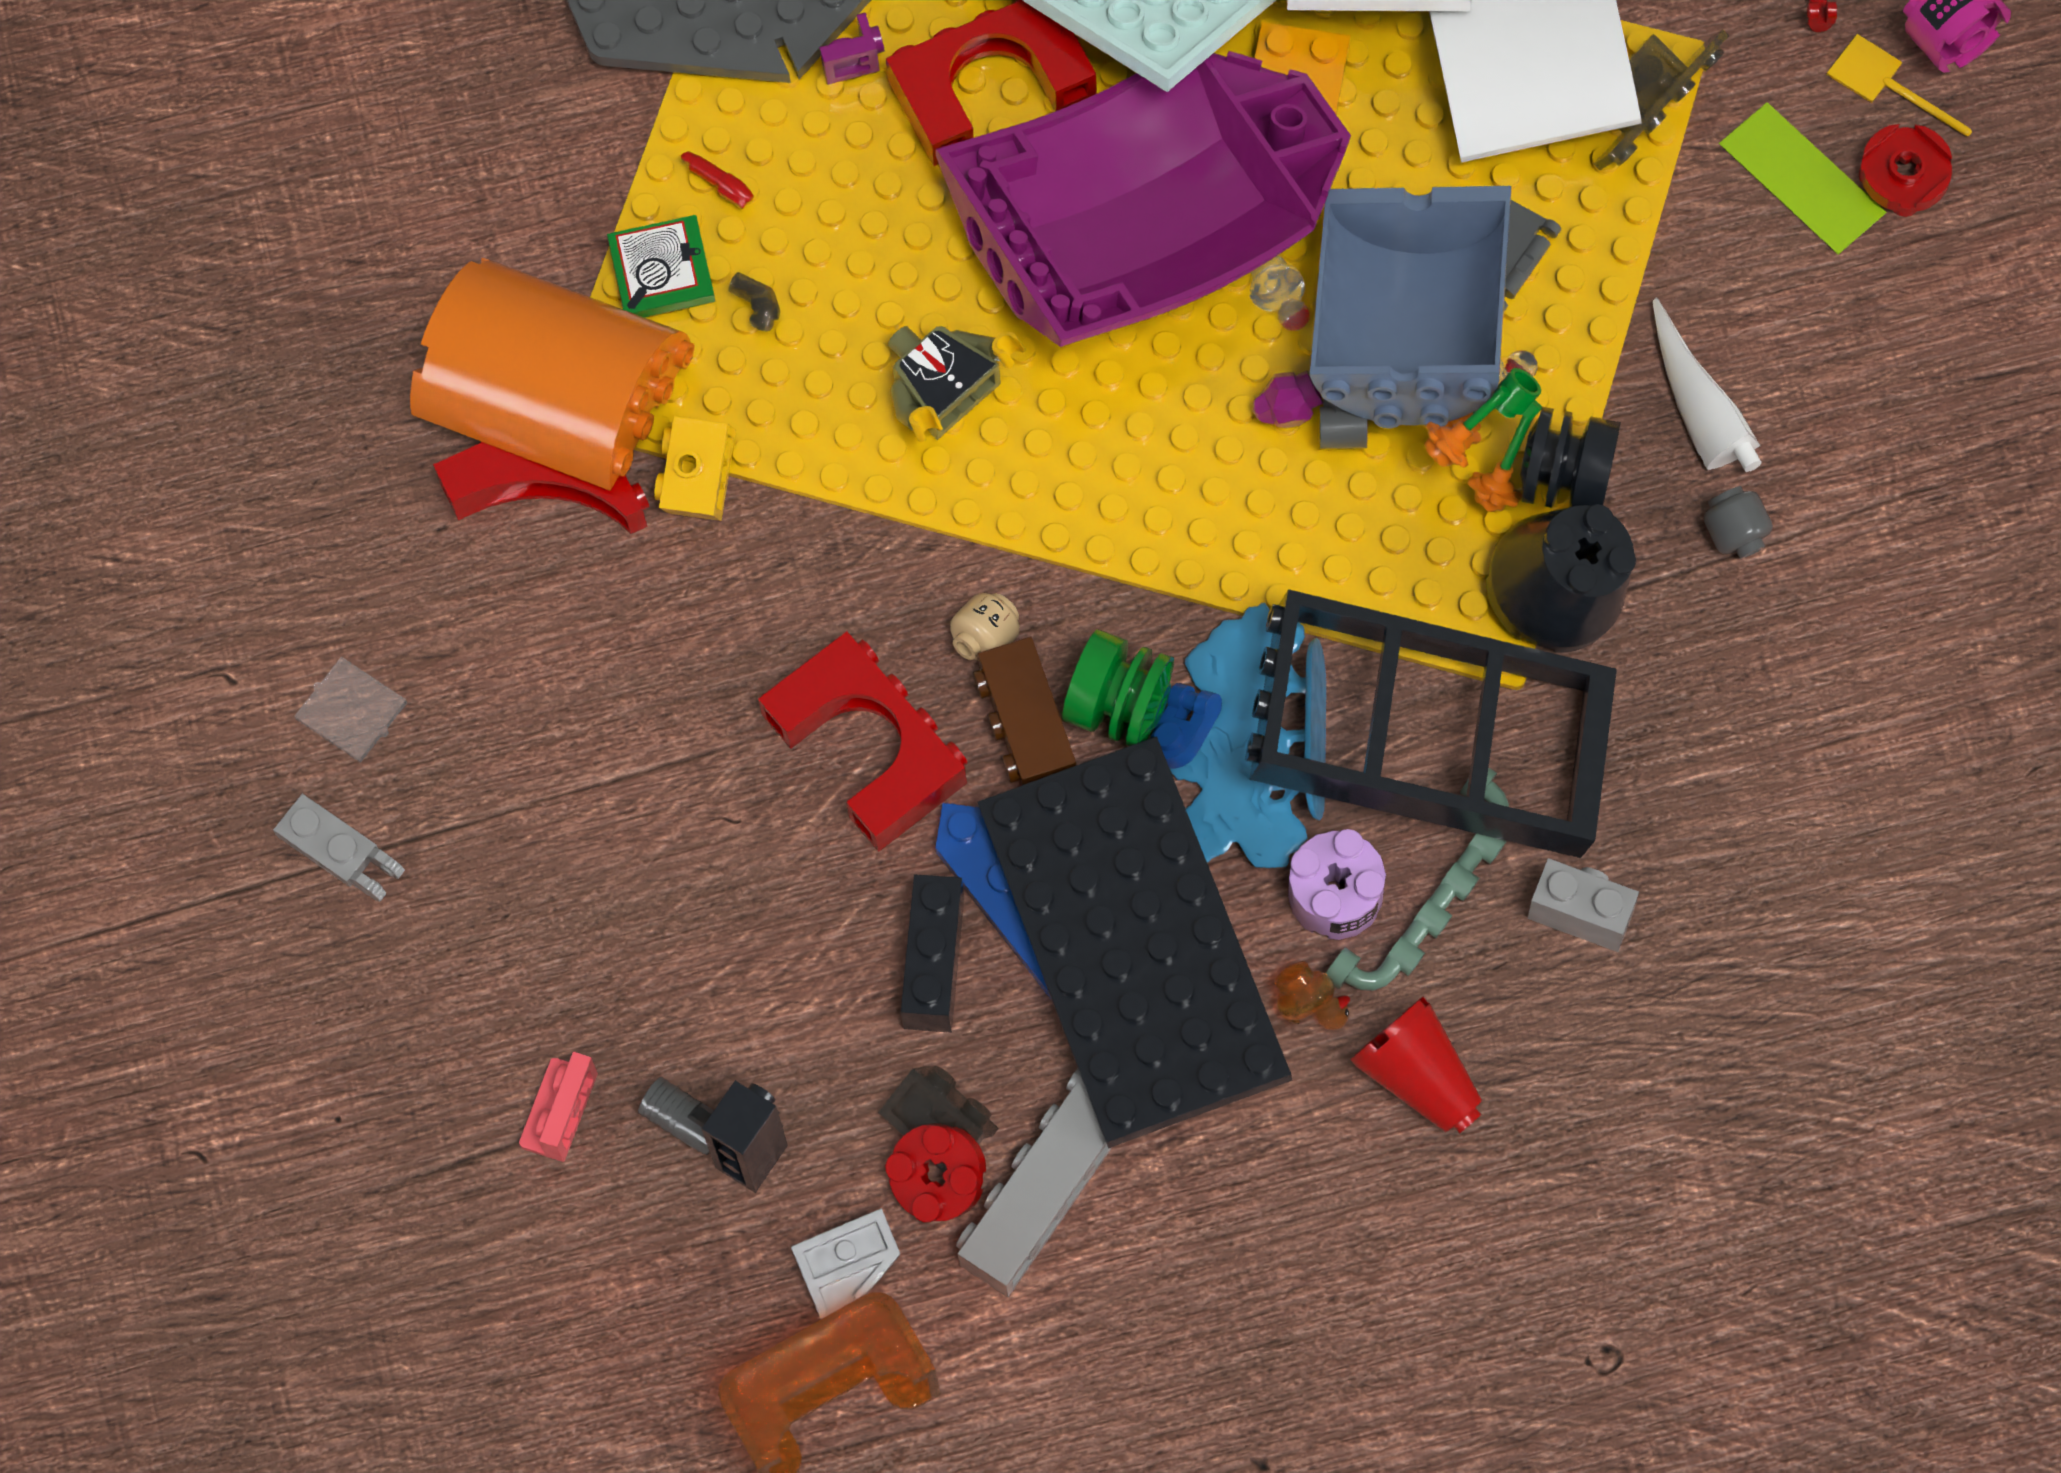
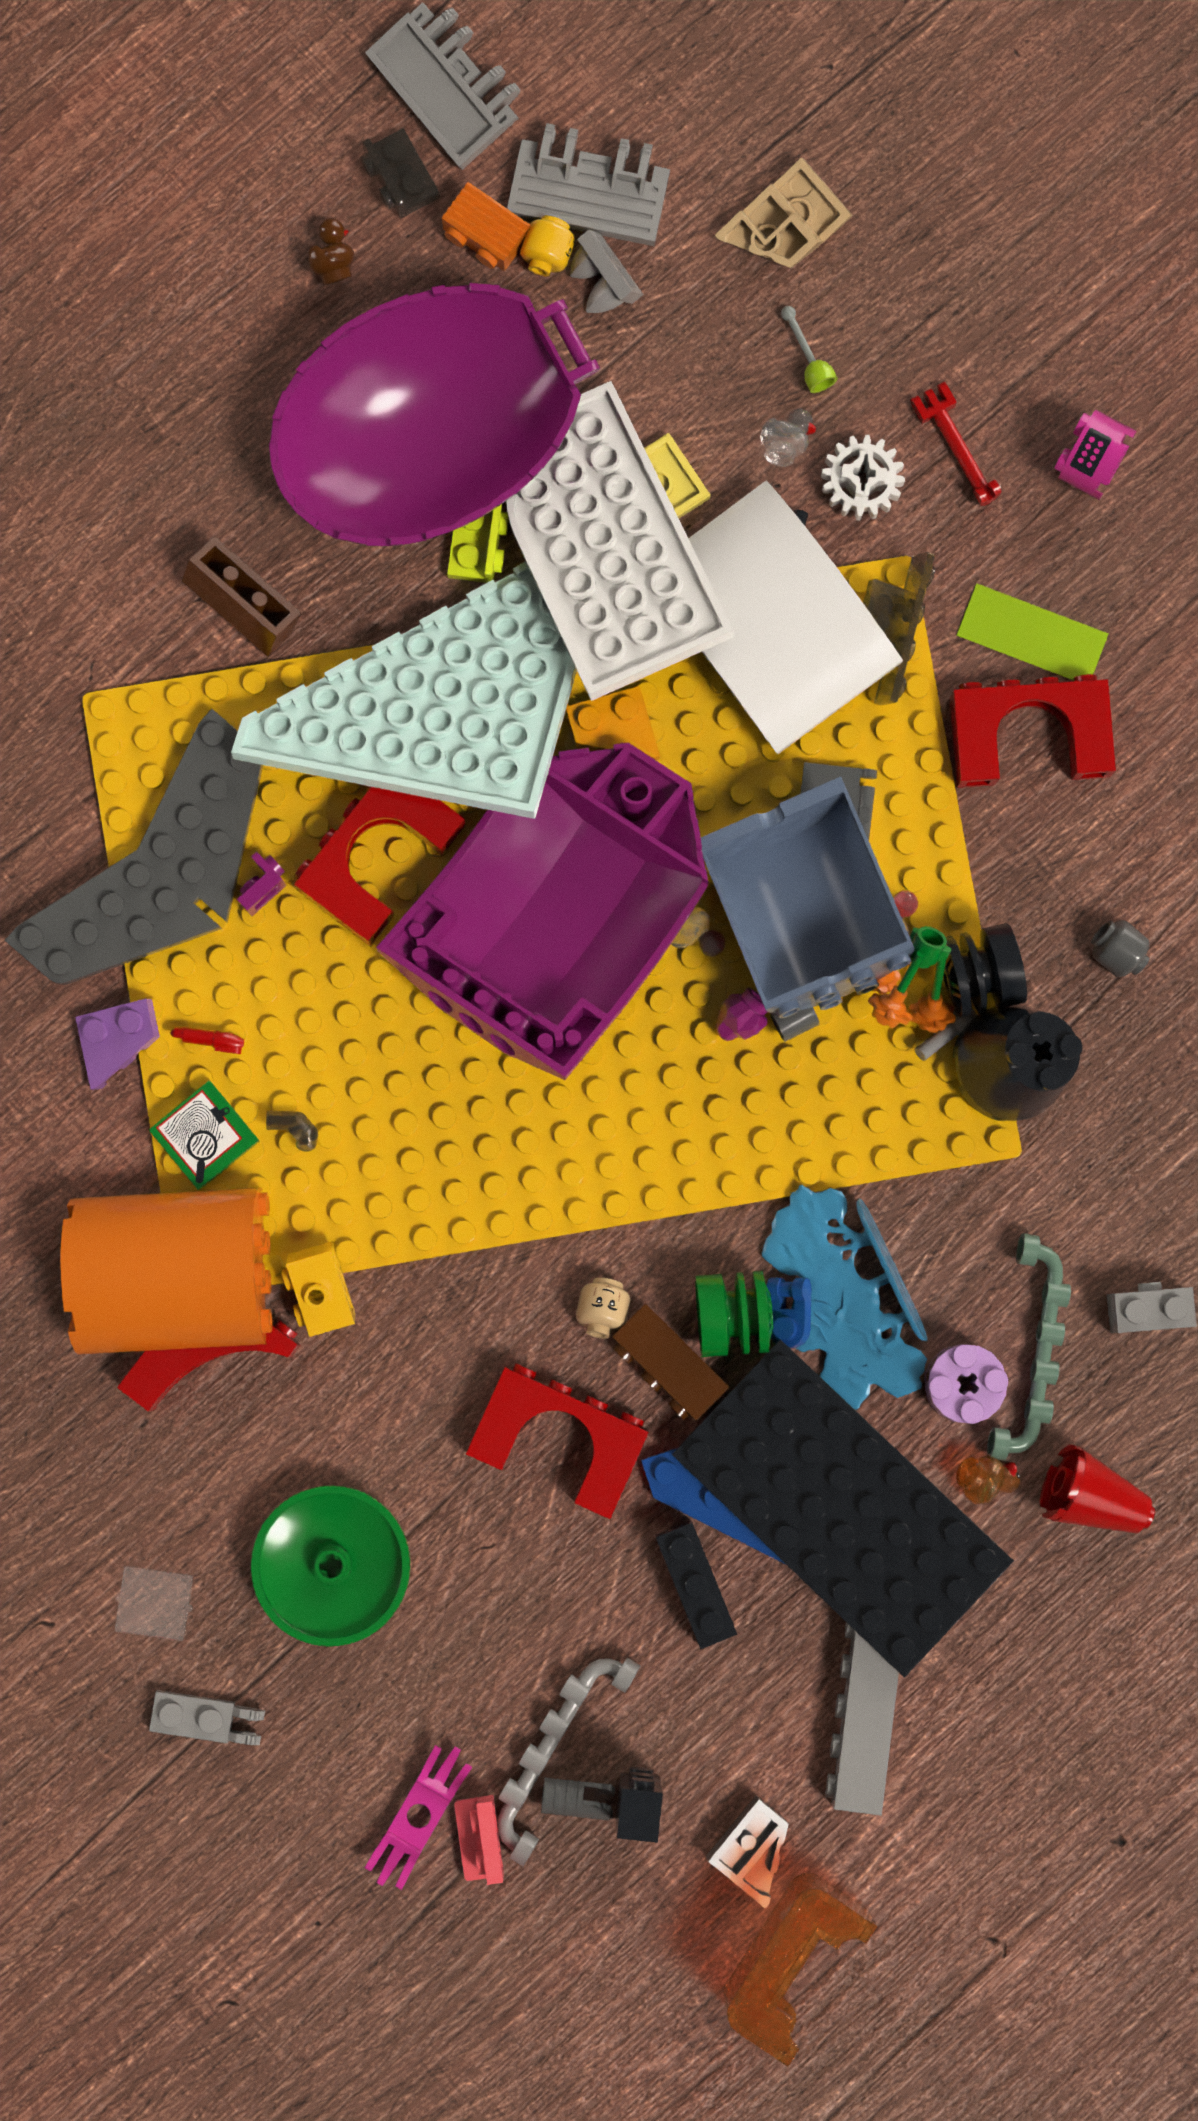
camera: 35 degrees left, 15 degrees up
(478, 1062) = (407, 1837): none -> dark pink piece
(555, 747) = (330, 1565): none -> green dish
(623, 136) = (114, 1038): none -> medium lavender wing
(663, 1058) = (536, 1758): none -> light grey bar
(931, 1097) = (763, 1705): clear smoke bracket -> none
(945, 375) = (471, 1125): torso -> none
(963, 1178) = (779, 1770): red plate -> none
(1420, 802) = (1098, 1185): black window -> none
(1497, 520) = (941, 1038): none -> light grey bar
(1707, 412) = (1053, 865): white piece -> none
(1710, 221) = (1078, 705): none -> red arch
(1869, 69) = (1039, 519): yellow piece -> none
(1903, 192) = (1090, 603): red plate -> none

